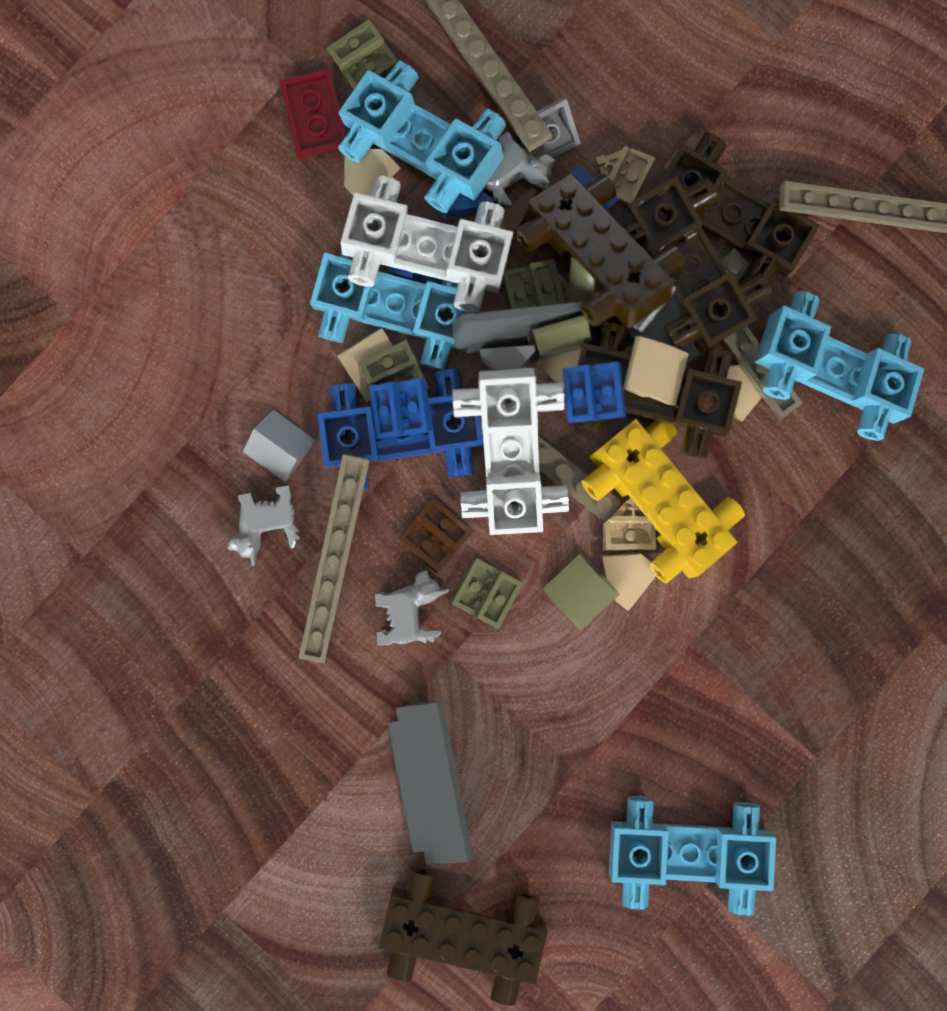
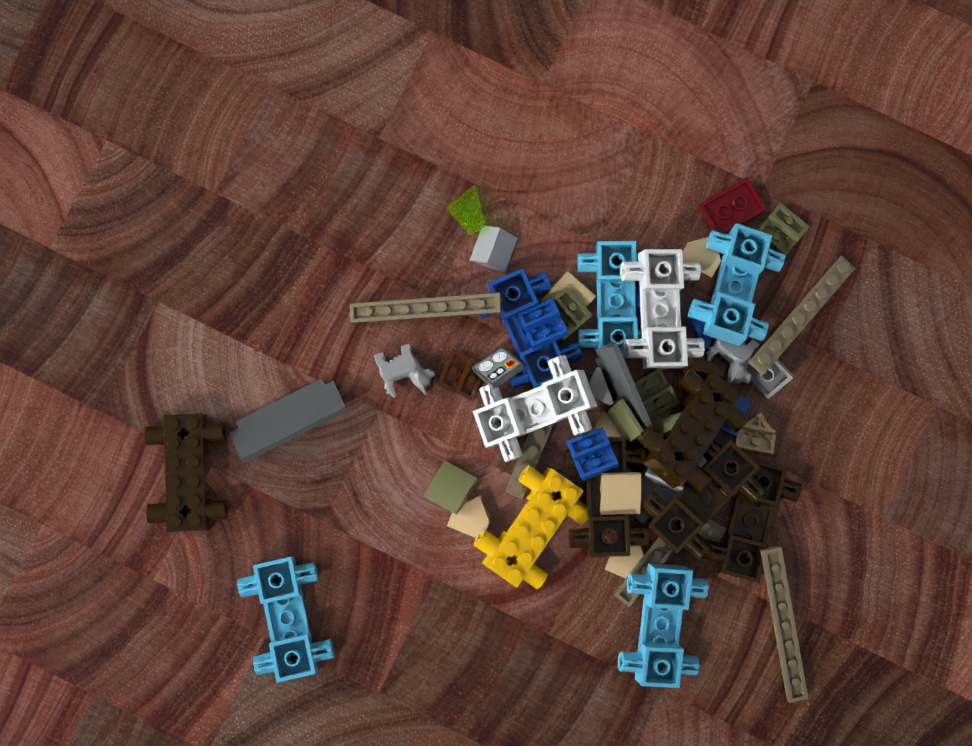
camera: 75 degrees right, 5 degrees down
(218, 465) = (468, 211): none -> clear neon green wing
(262, 517) = (440, 250): light grey animal -> none
(441, 485) = (497, 367): none -> tile
(486, 592) = (431, 421): olive slope -> none
(629, 530) = (503, 509): tan slope -> none

